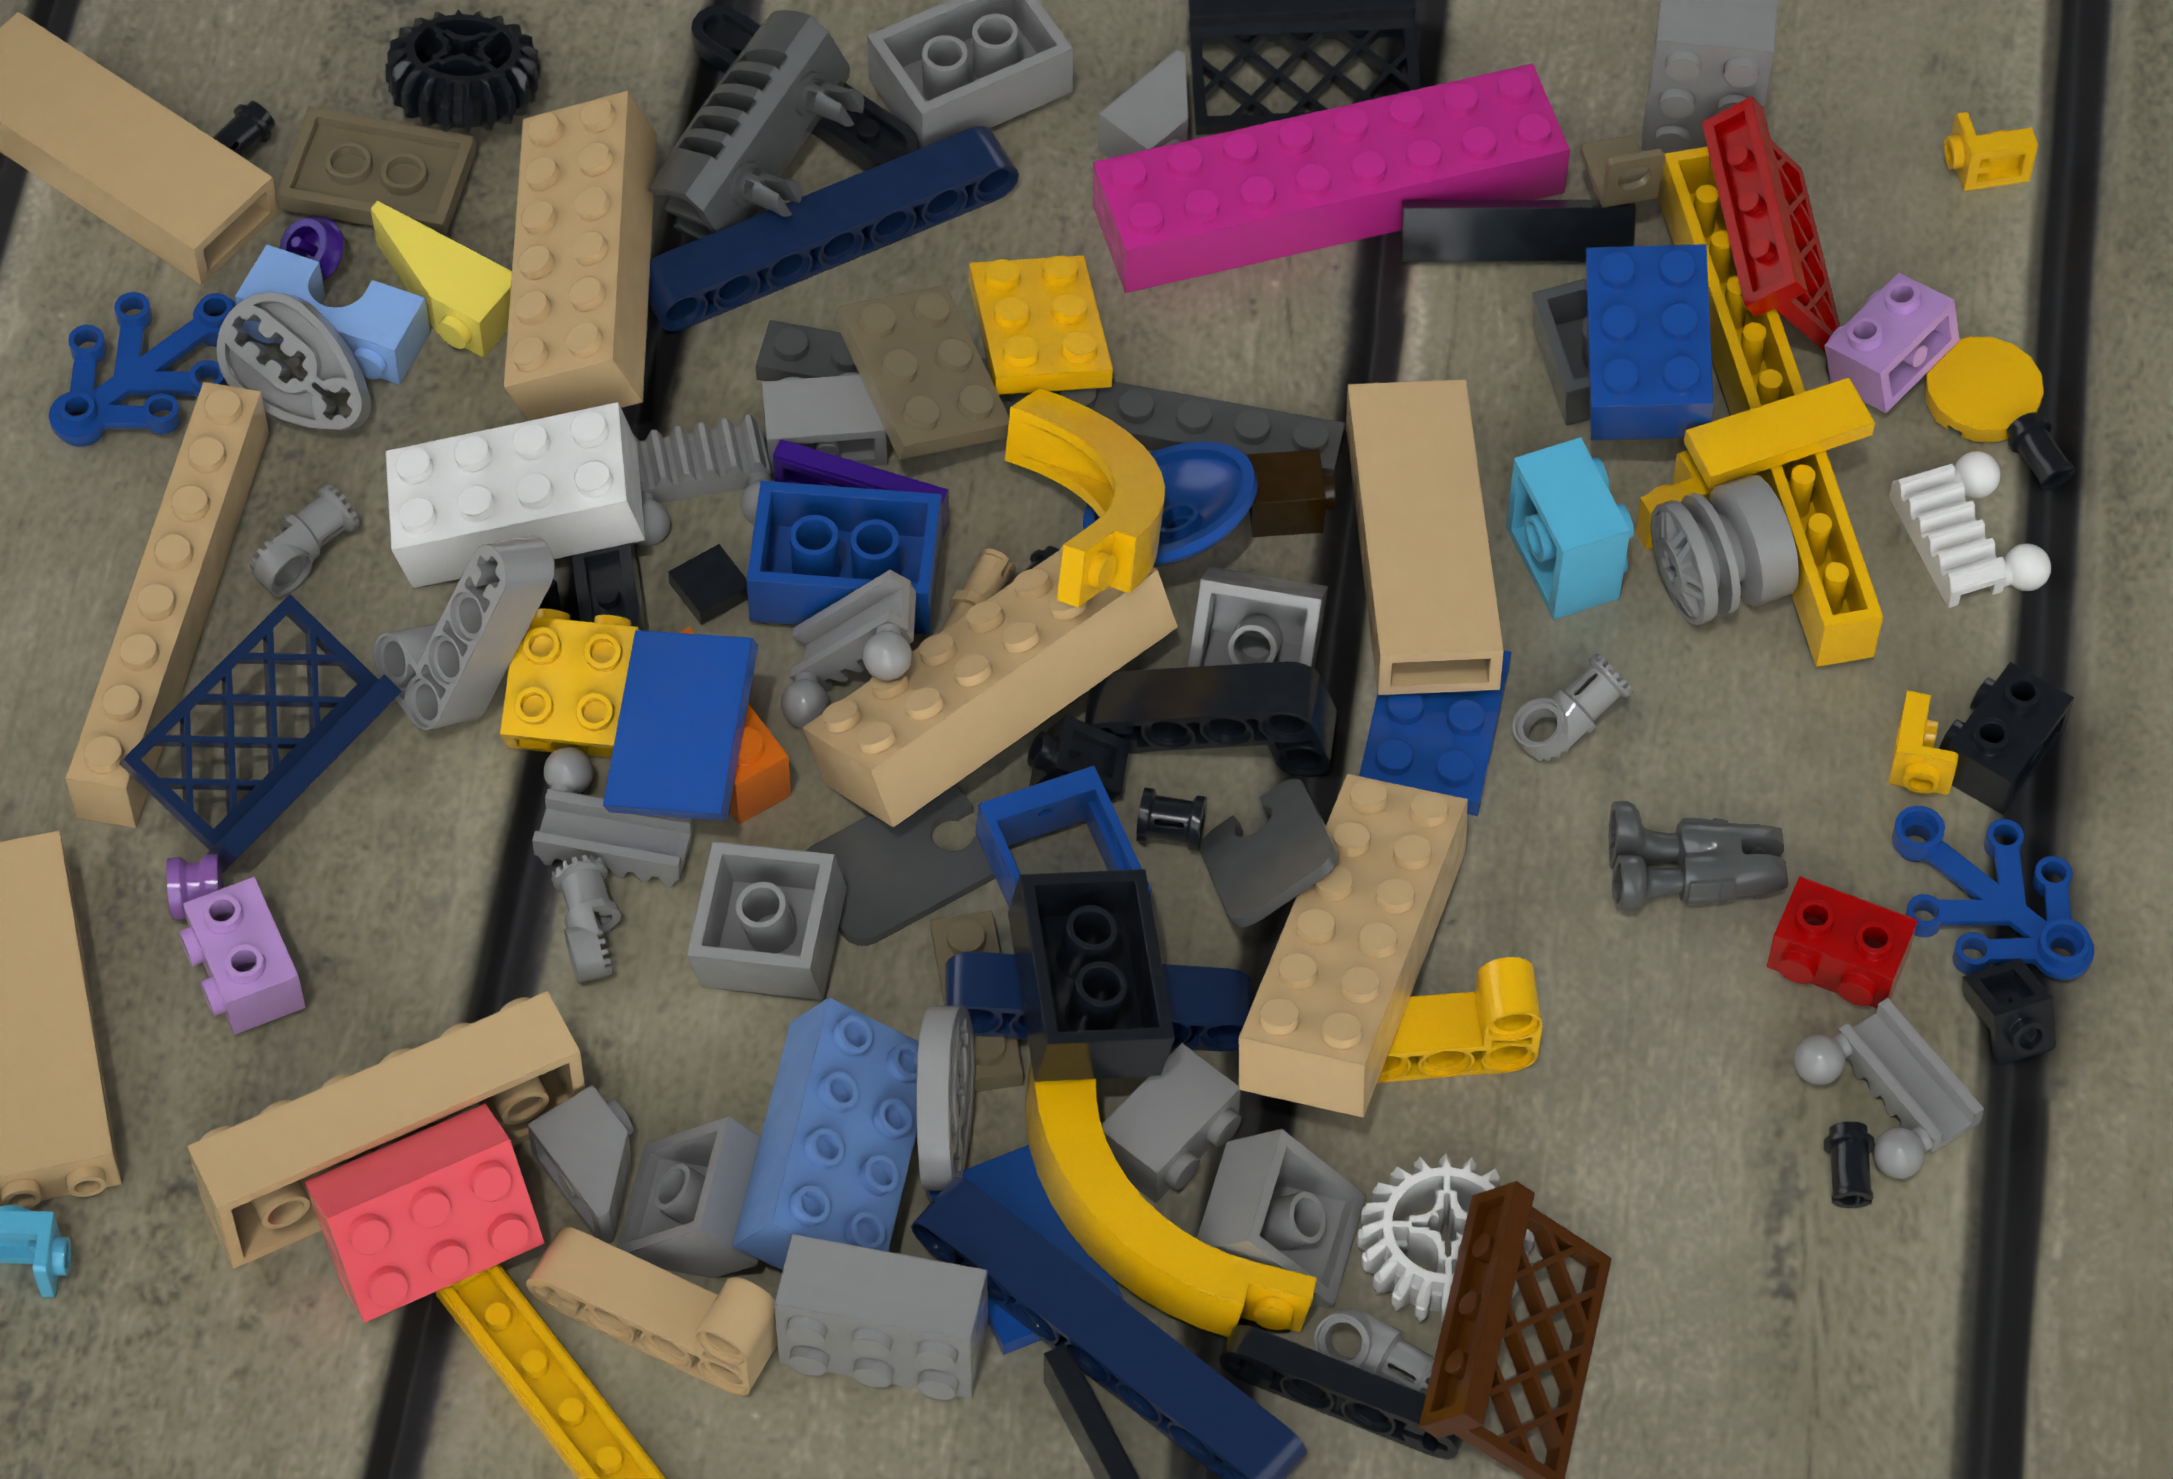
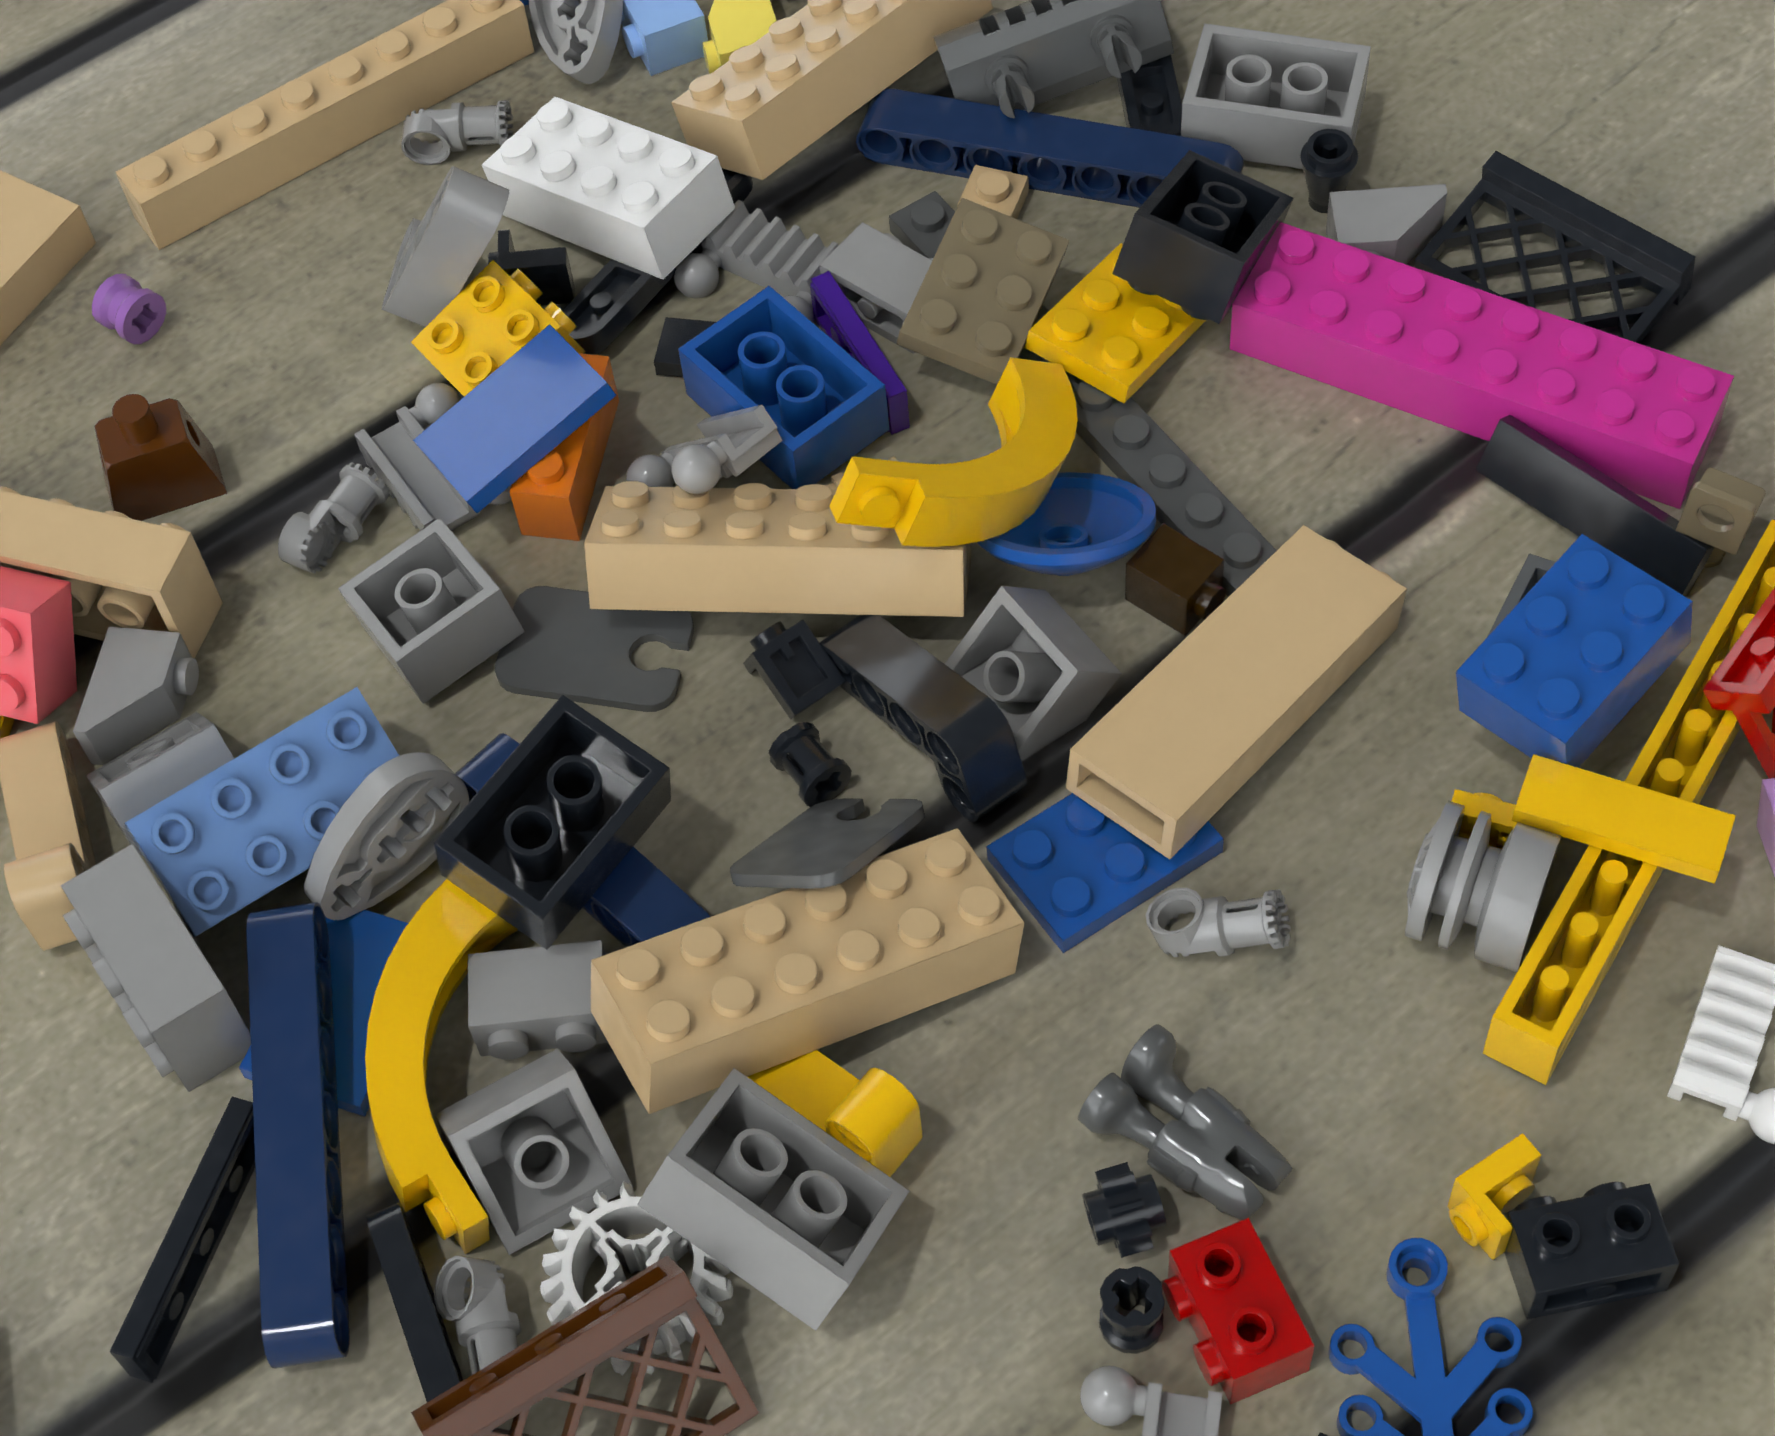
camera: 50 degrees right, 0 degrees up
(242, 955) = (91, 369): lavender brick -> none
(298, 769) = (264, 278): dark blue fence -> none
(390, 973) = (155, 458): none -> reddish brown torso
(815, 293) = (997, 190): none -> tan plate
(1046, 809) = (712, 680): blue window -> none
(1053, 212) = (1200, 236): none -> black brick
(1072, 93) = (1327, 165): none -> black cone
(1502, 1103) = (773, 1198): none -> light grey brick
(1568, 527) = (1365, 768): medium azure brick -> none
(1709, 939) = (1124, 1209): none -> black gear
(1777, 996) = (1137, 1330): none -> black bush

